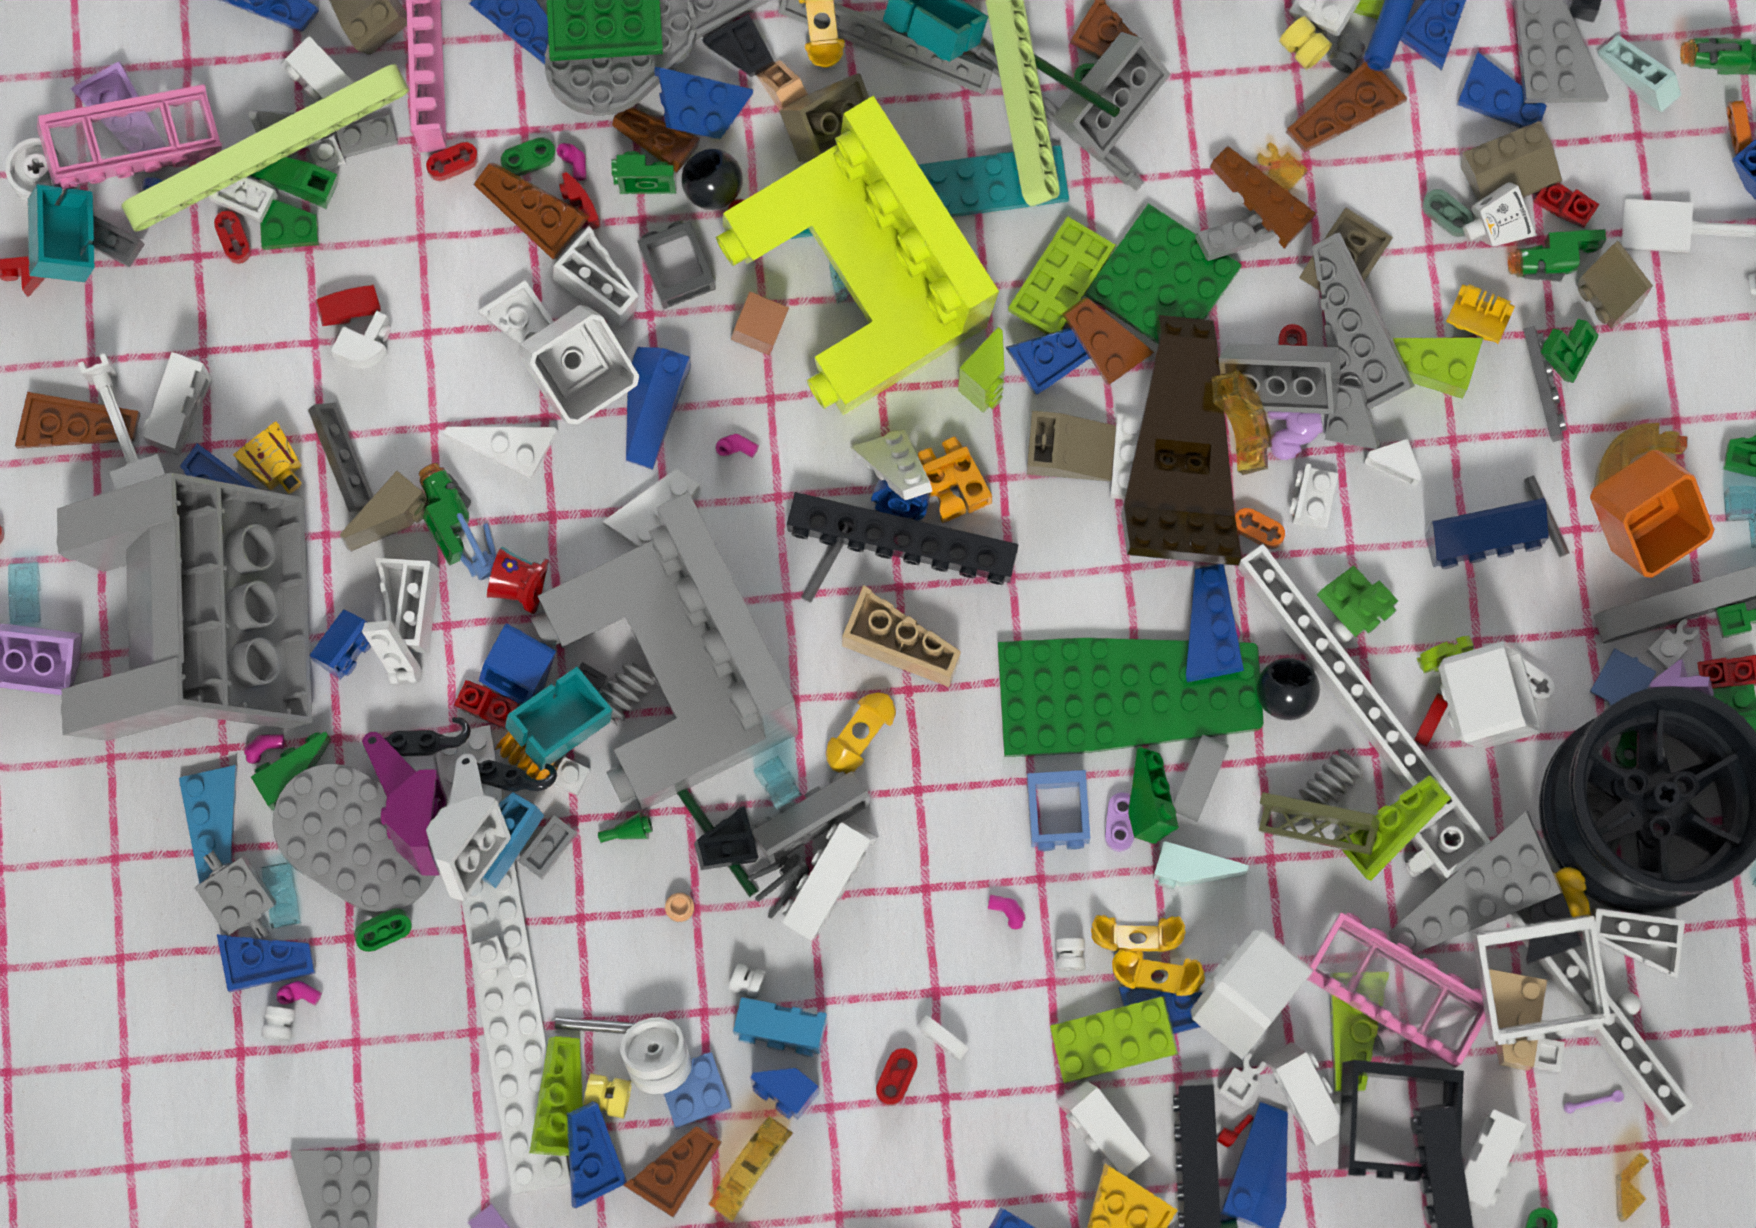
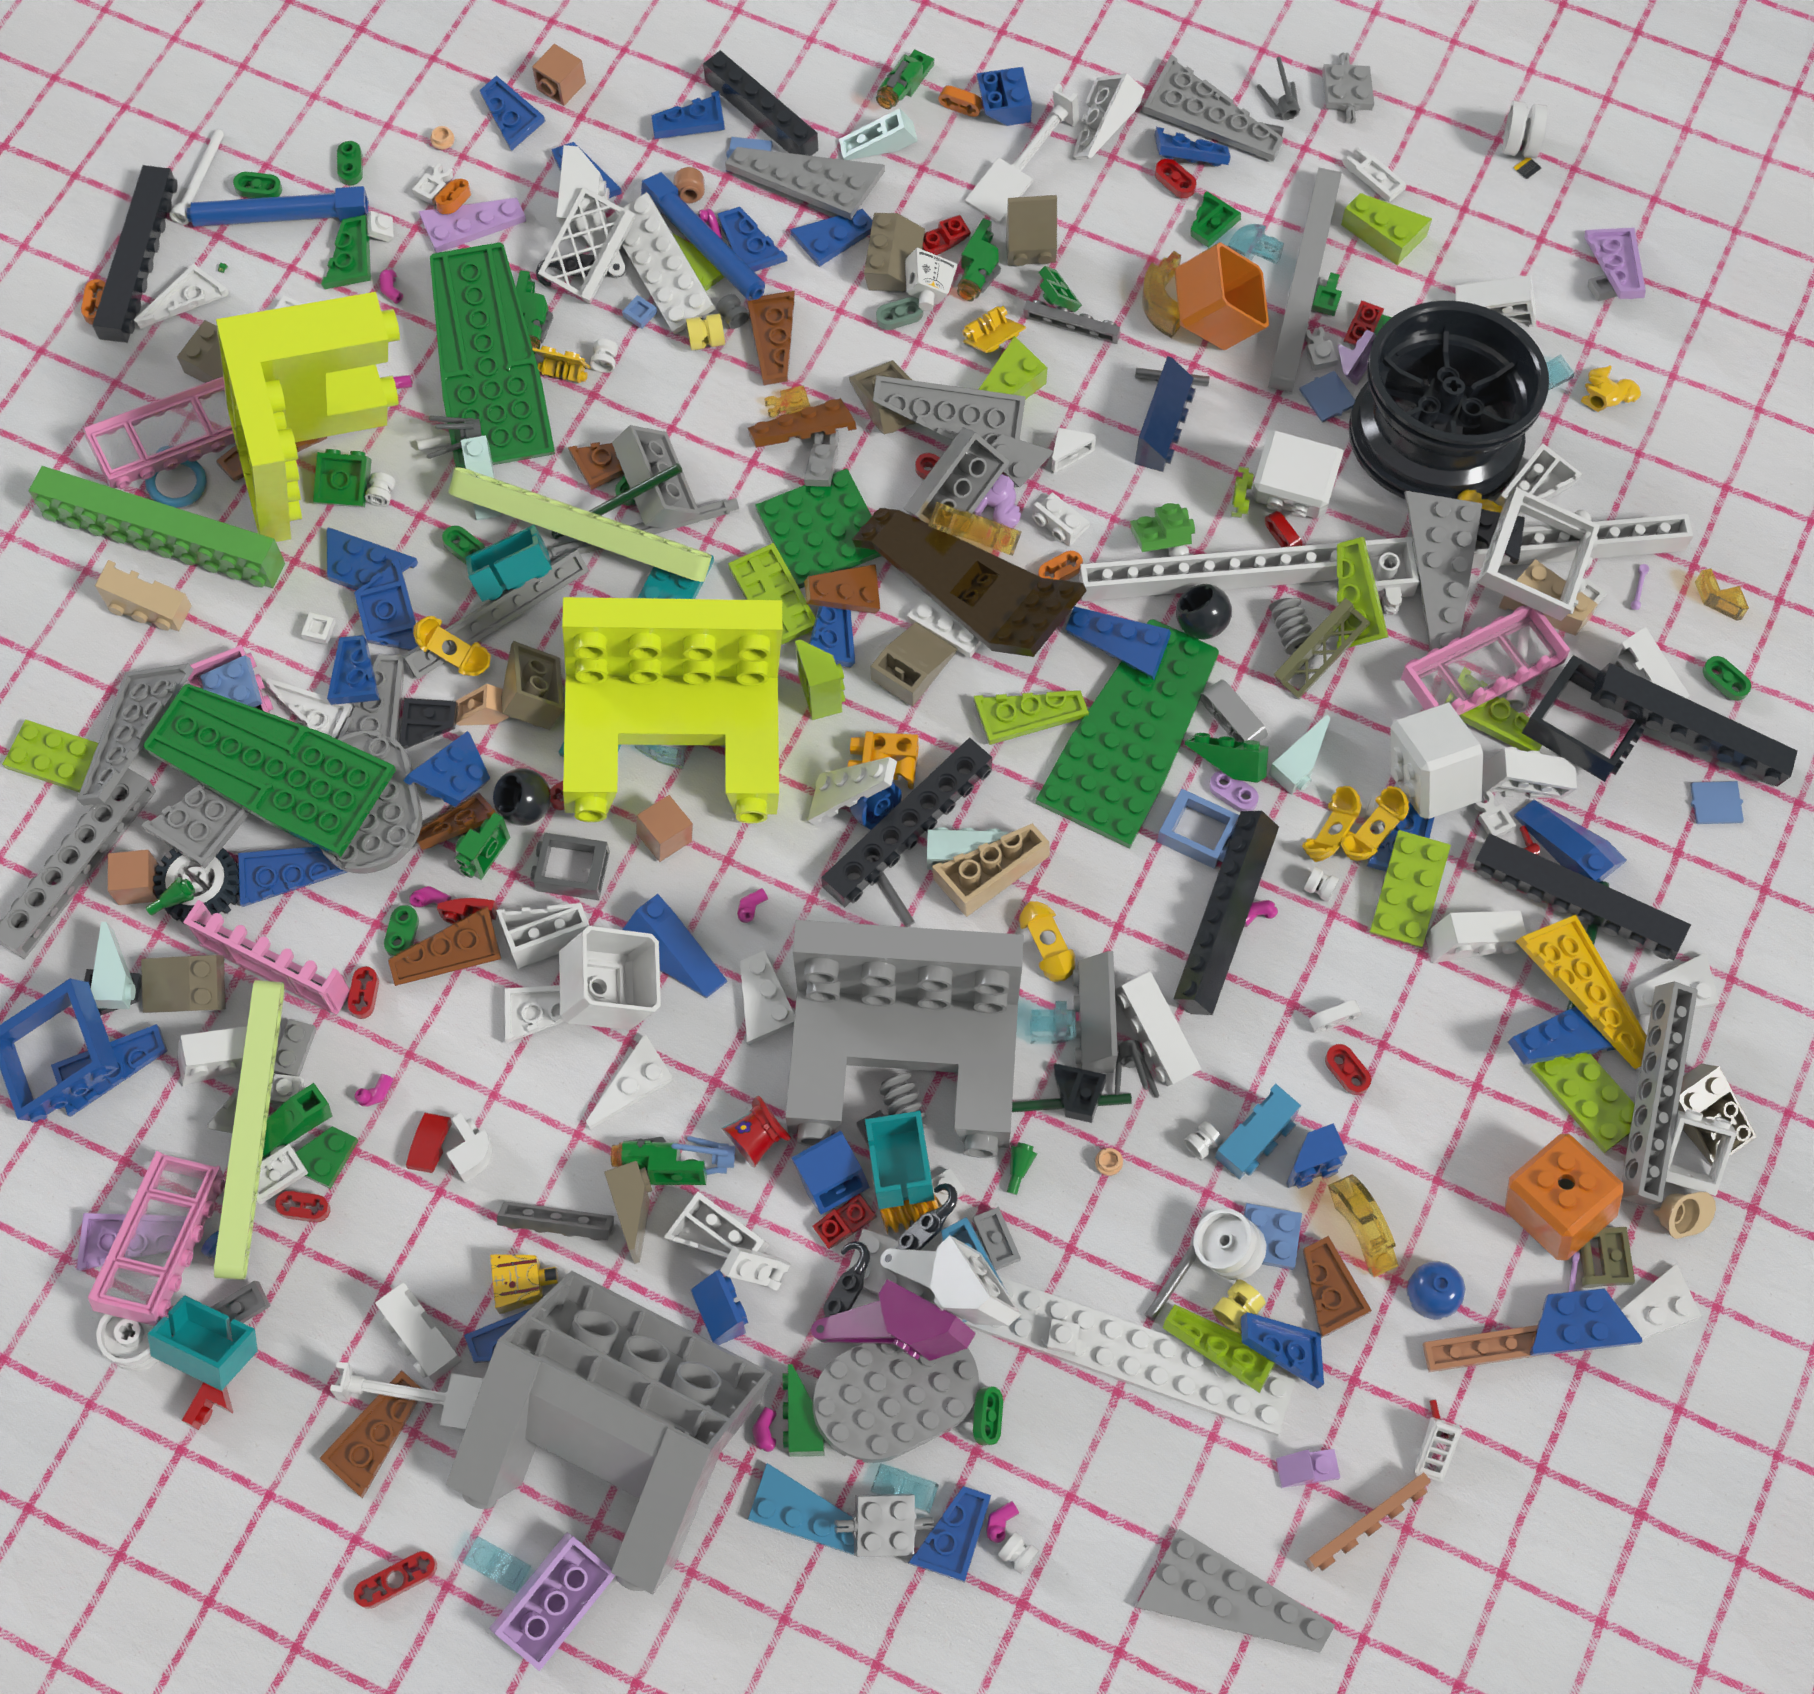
camera: 60 degrees left, 10 degrees down
(365, 232) = (374, 1095): none -> dark pink arm
(897, 587) = (945, 843): none -> light aqua slope
(985, 880) = (1226, 913): none -> black brick
(1080, 581) = (1017, 716): none -> lime wing

